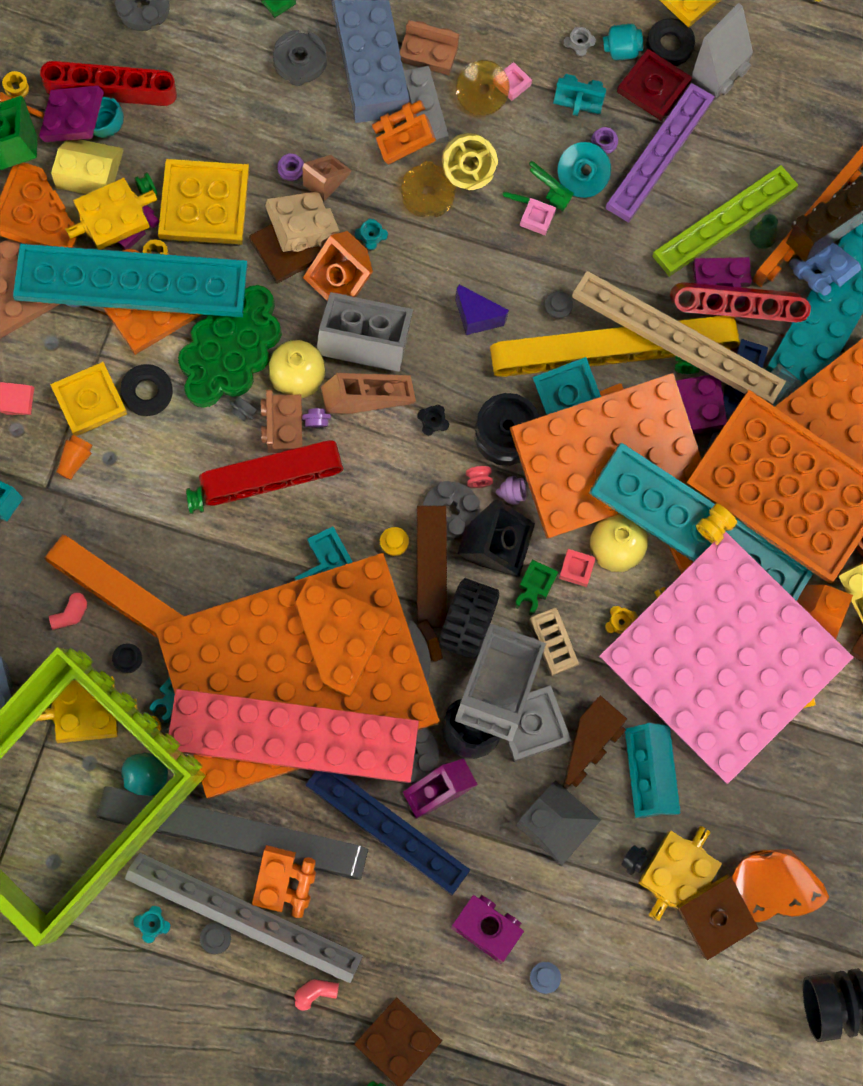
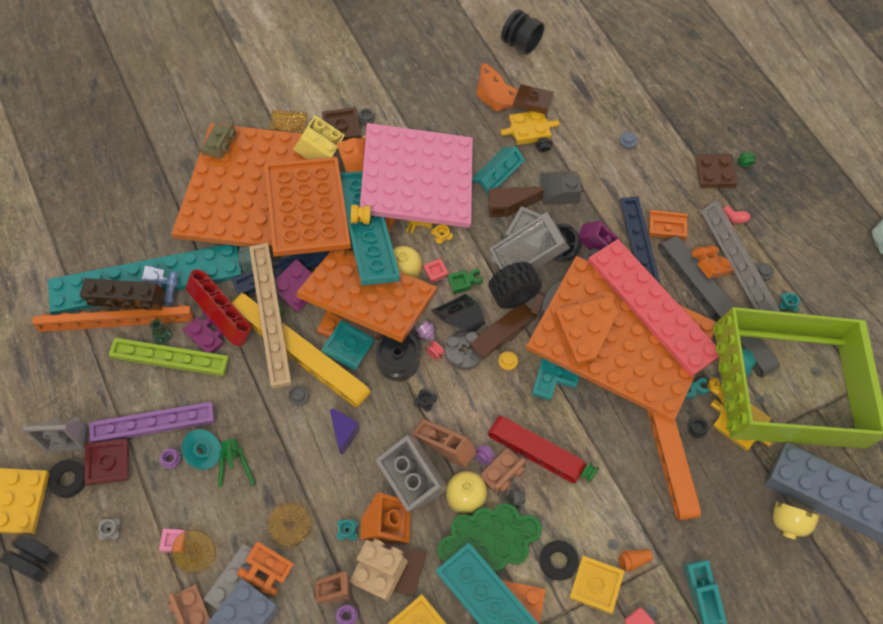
camera: 125 degrees left, 10 degrees down
(72, 614) = (709, 475): coral arm -> none
(382, 891) = (667, 224): none -> orange plate
(469, 161) = (253, 511): light yellow cylinder -> none
(469, 927) = (641, 179): magenta brick -> none
(537, 216) = (253, 450): bright pink plate -> none
(562, 637) = (477, 264): tan slope -> none
(580, 95) = (153, 494): teal hips -> none
(623, 41) = (90, 501): teal head -> none

